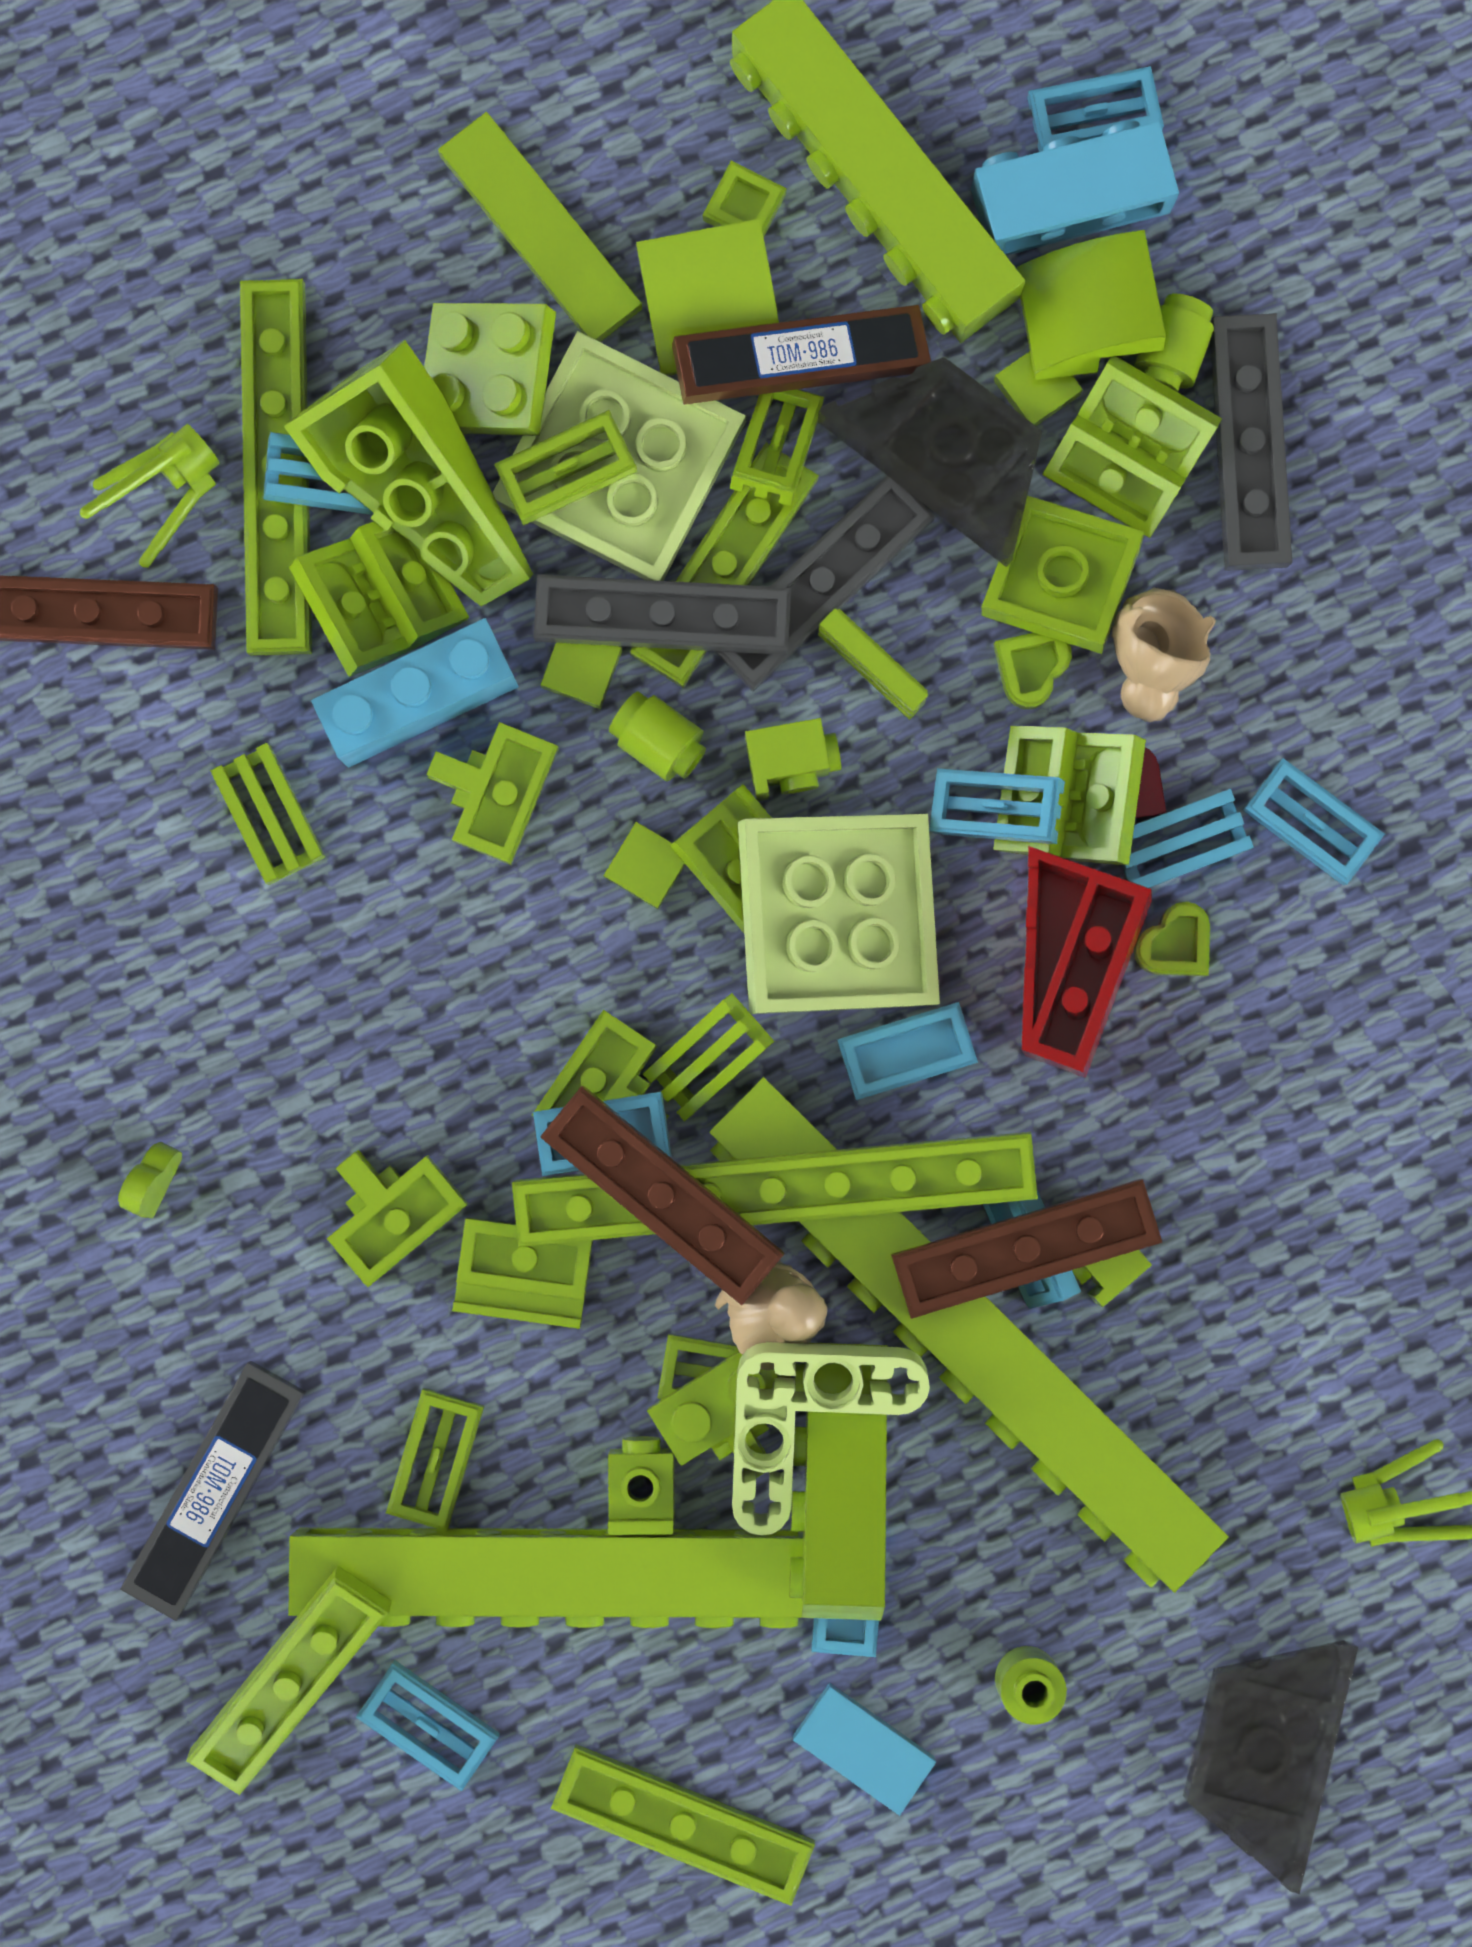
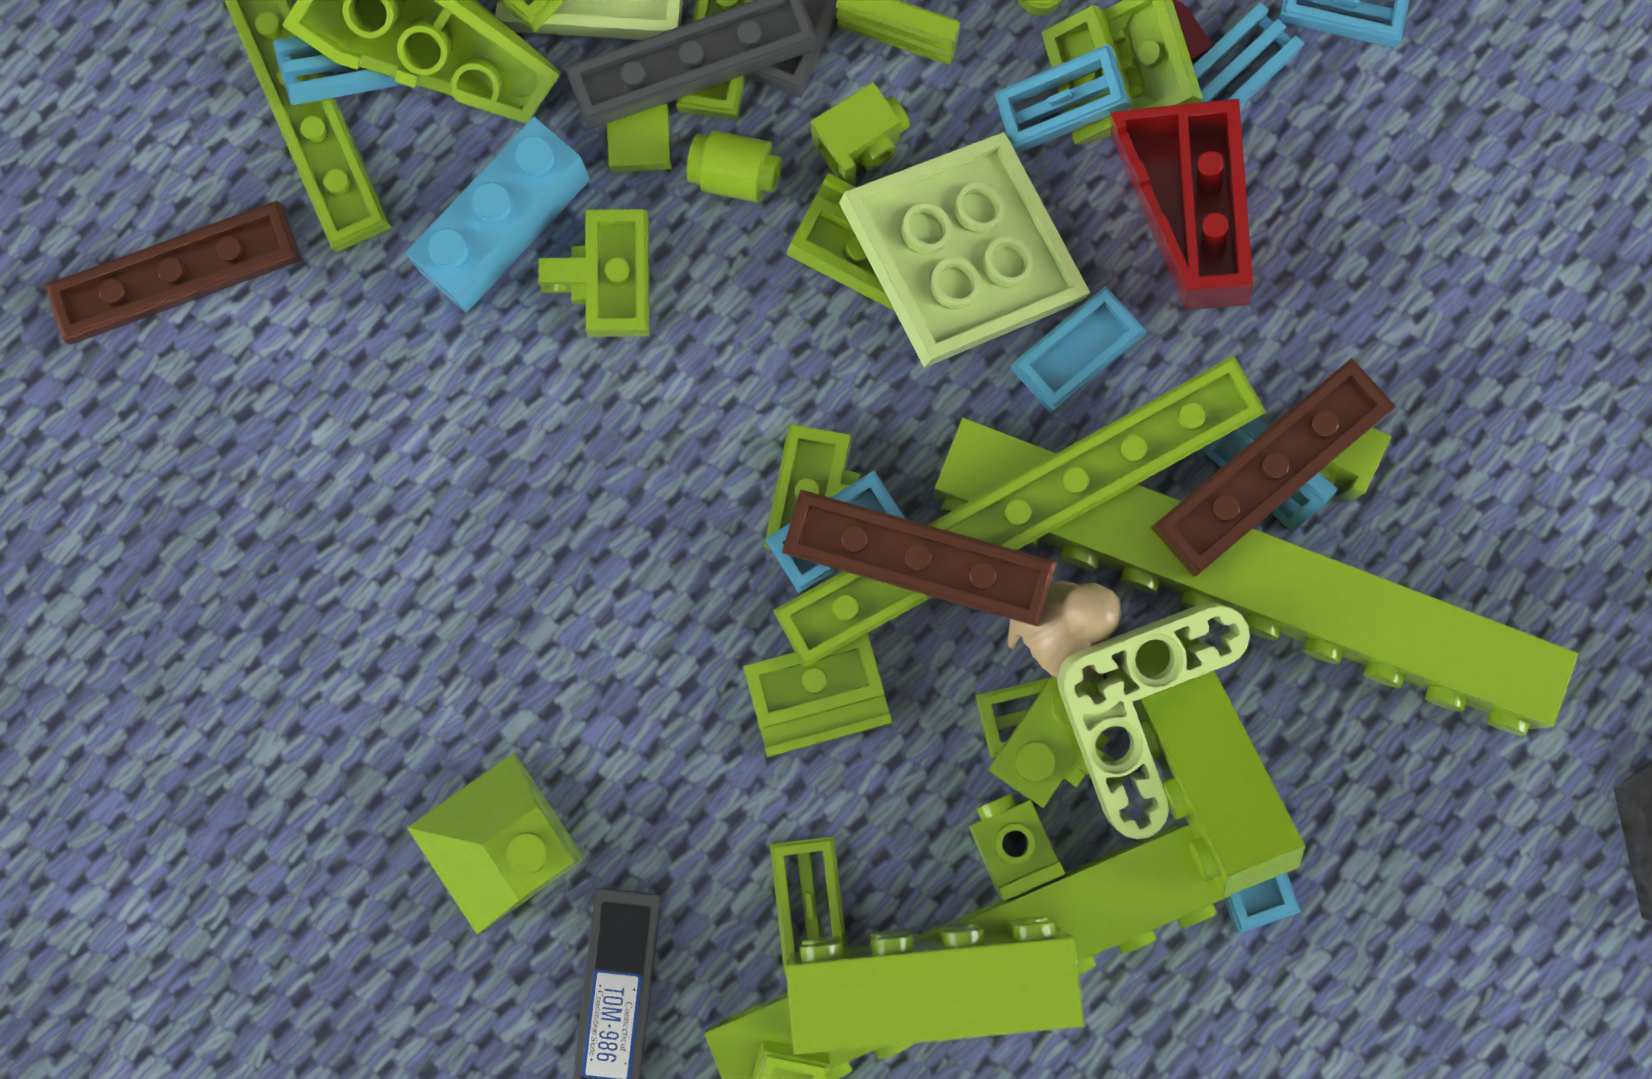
camera: 20 degrees left, 5 degrees down
(149, 1180) = (434, 757): lime tile -> none
(174, 1281) = (496, 843): none -> lime slope
(181, 460) = (204, 104): lime plant -> none
(244, 766) = (371, 349): lime tile -> none
(376, 597) = (424, 148): lime slope -> none
(391, 1213) = (673, 692): lime hinge -> none
(502, 1585) = (933, 987): none -> lime brick
(645, 866) = (771, 285): lime tile -> none
(675, 1086) = (884, 468): lime tile -> none
(864, 1749) = (1329, 1004): medium azure tile -> none
(1028, 1665) = (1440, 873): lime brick -> none
(1177, 944) = (1275, 154): lime tile -> none

